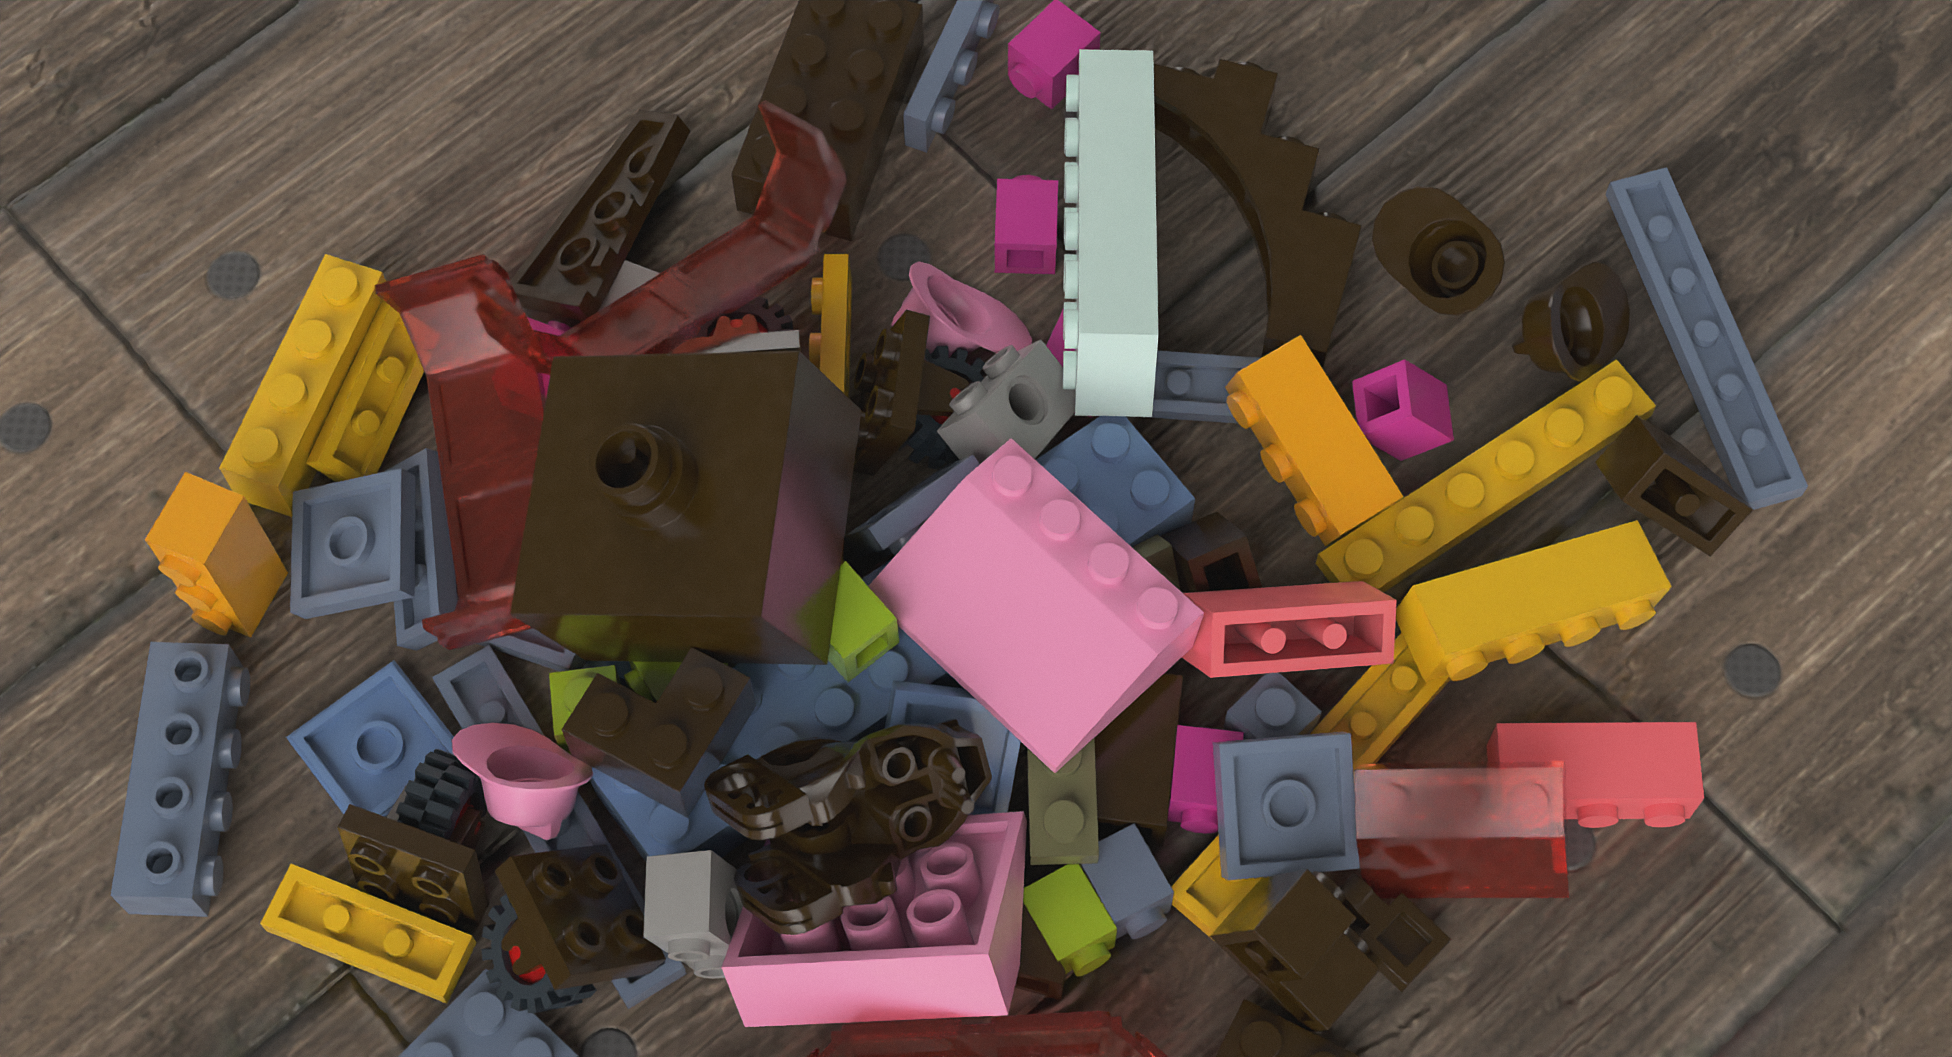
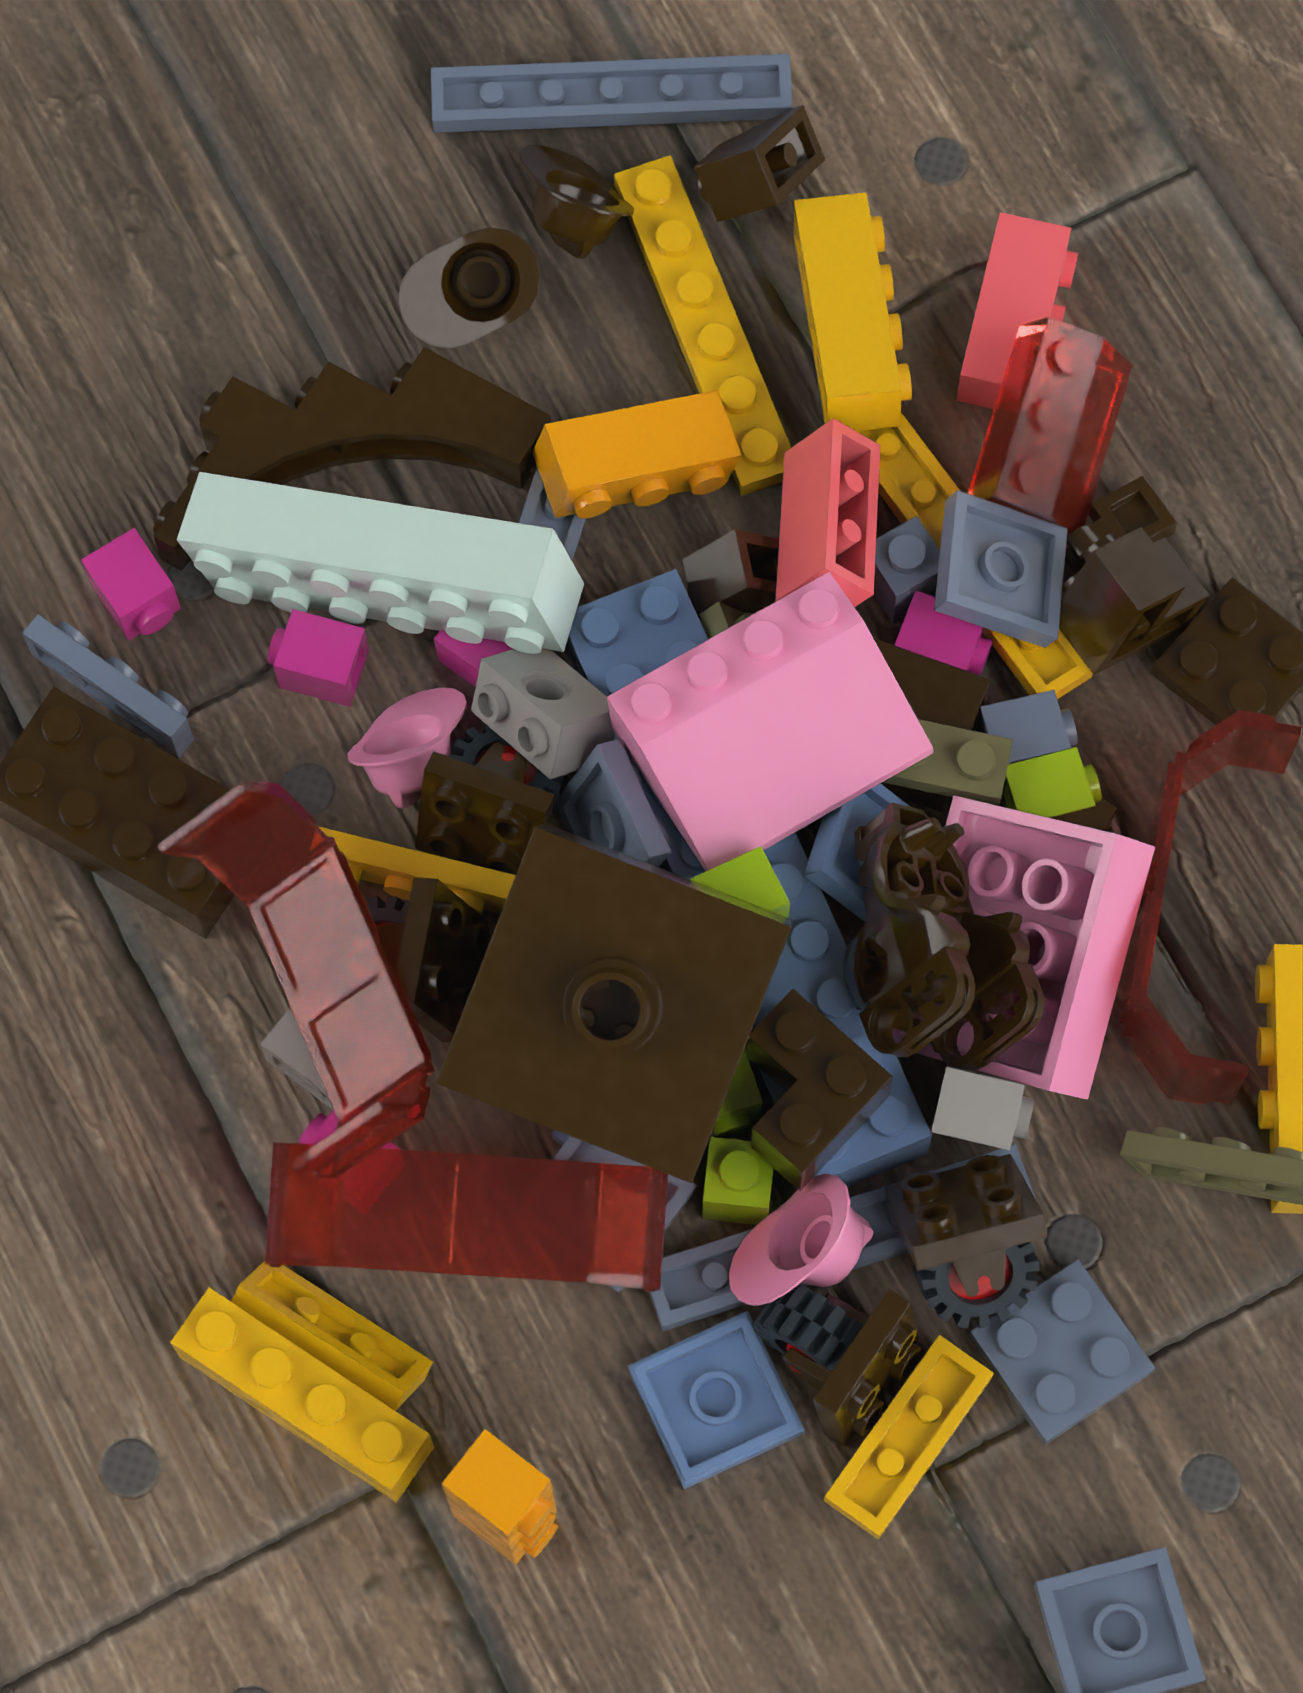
camera: 75 degrees left, 5 degrees up
(180, 780) = (705, 1593): sand blue brick -> none
(353, 544) = (500, 1376): sand blue plate -> none
(433, 555) = (517, 1315): sand blue plate -> none
(594, 233) = (201, 1069): dark brown wing -> none
(1403, 410) = (624, 367): dark pink brick -> none

